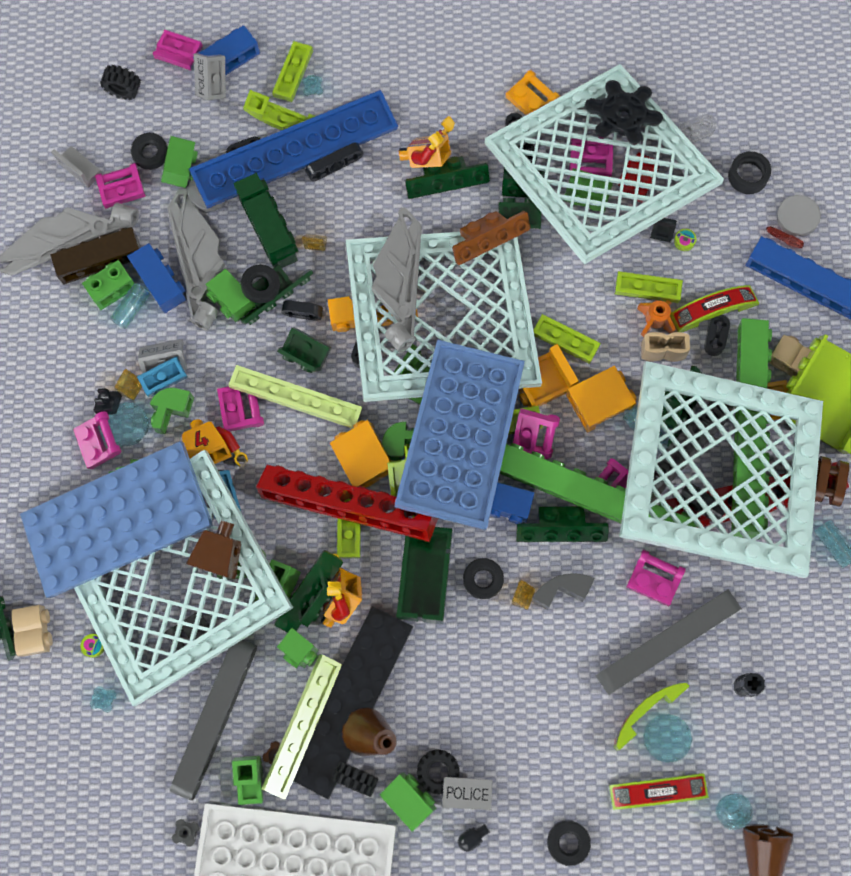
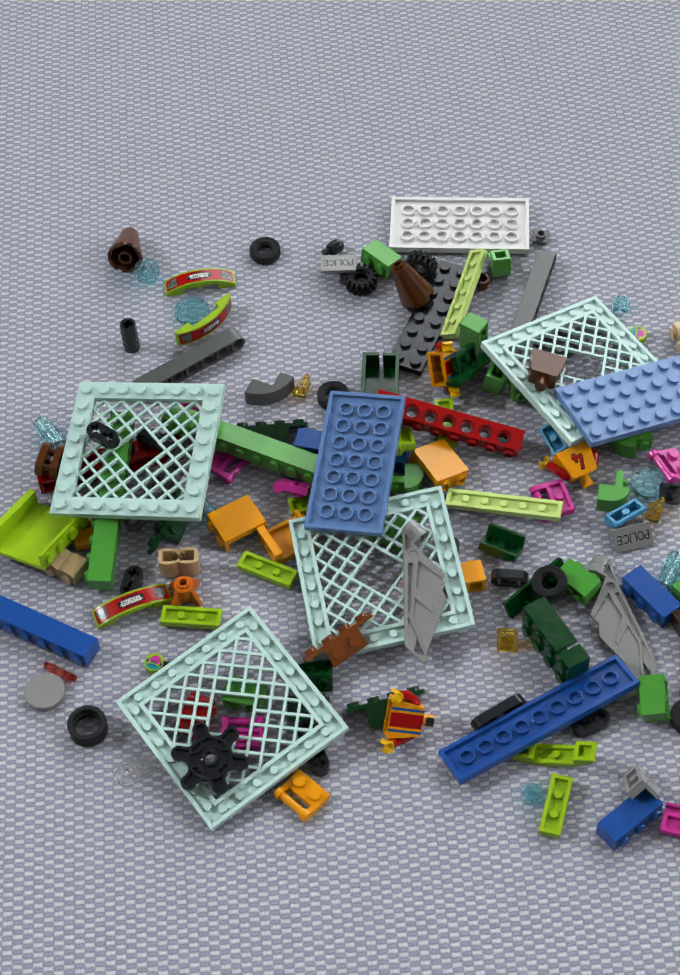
camera: 175 degrees right, 20 degrees down
(770, 485) = (100, 438): none -> black beam

